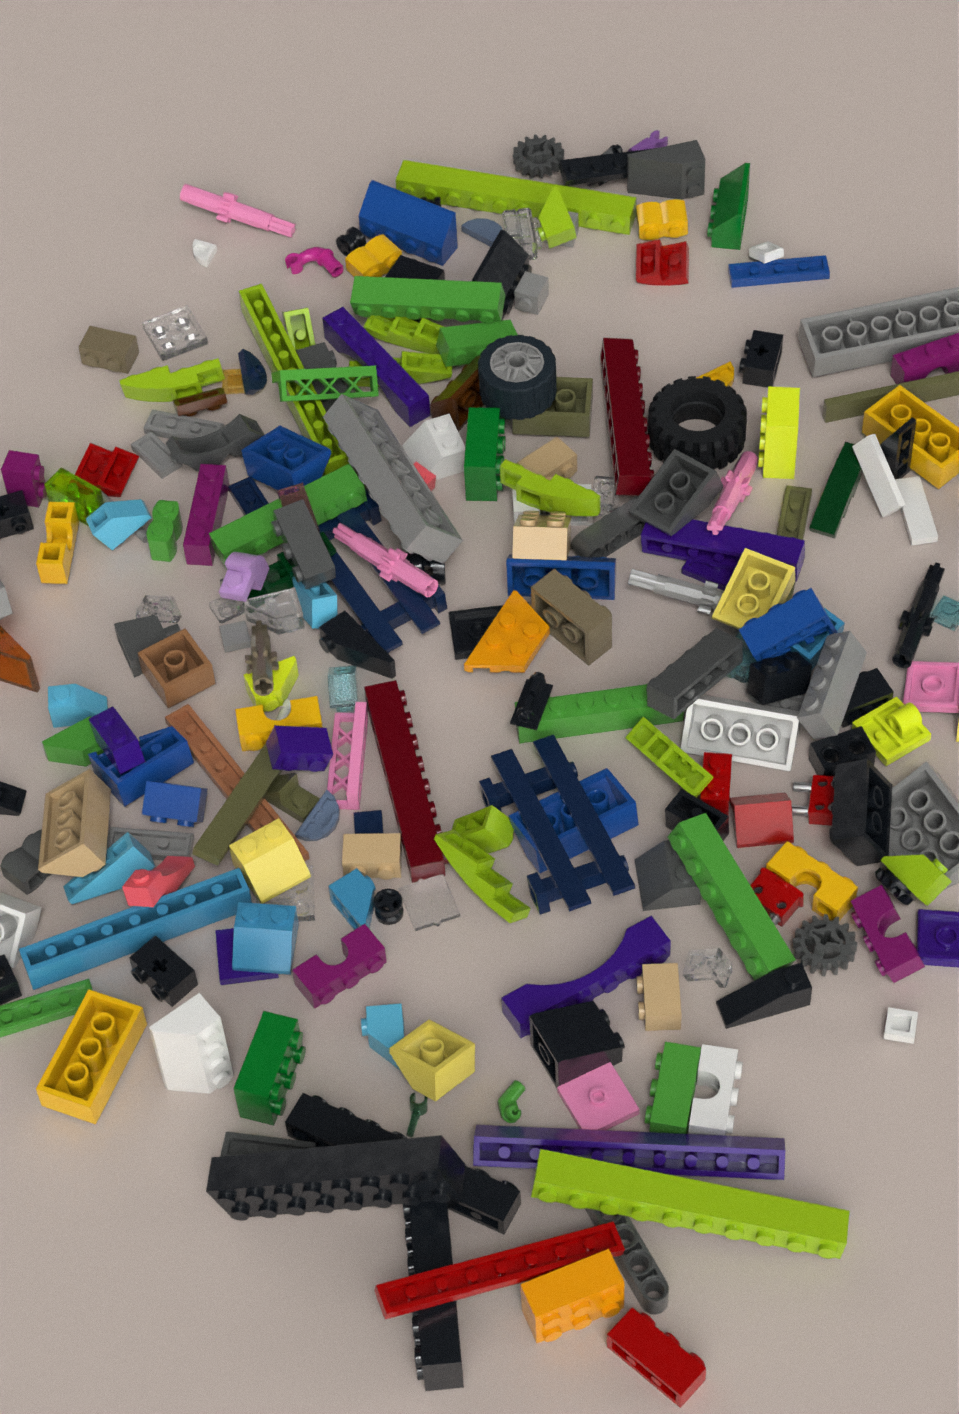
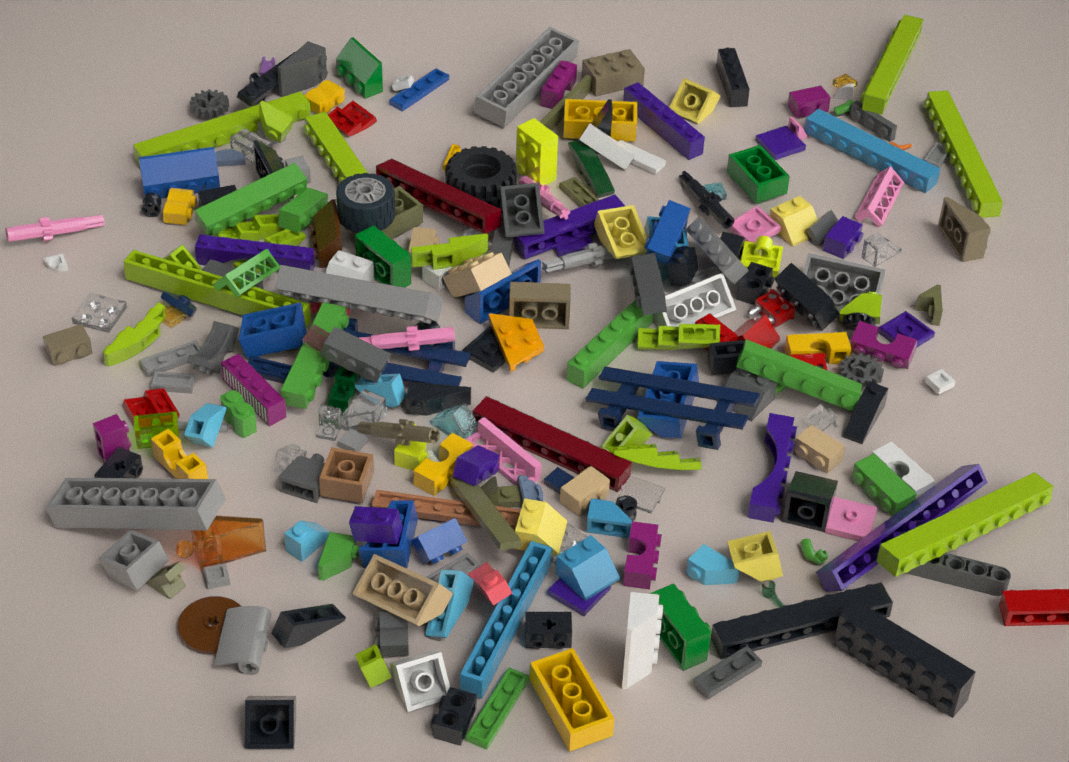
camera: 50 degrees left, 10 degrees down
(207, 400) = (166, 337): reddish brown plate -> none
(243, 574) = (332, 398): lavender brick -> none
(322, 256) = (140, 222): dark pink piece -> none
(337, 1177) = (801, 638): black brick -> none
(494, 1270) = (935, 617): red plate -> none
(532, 702) = (582, 352): black hinge -> none
(572, 1296) = (971, 608): light orange brick -> none
(594, 296) = (332, 146): none -> lime brick
(762, 358) = (469, 131): black brick -> none

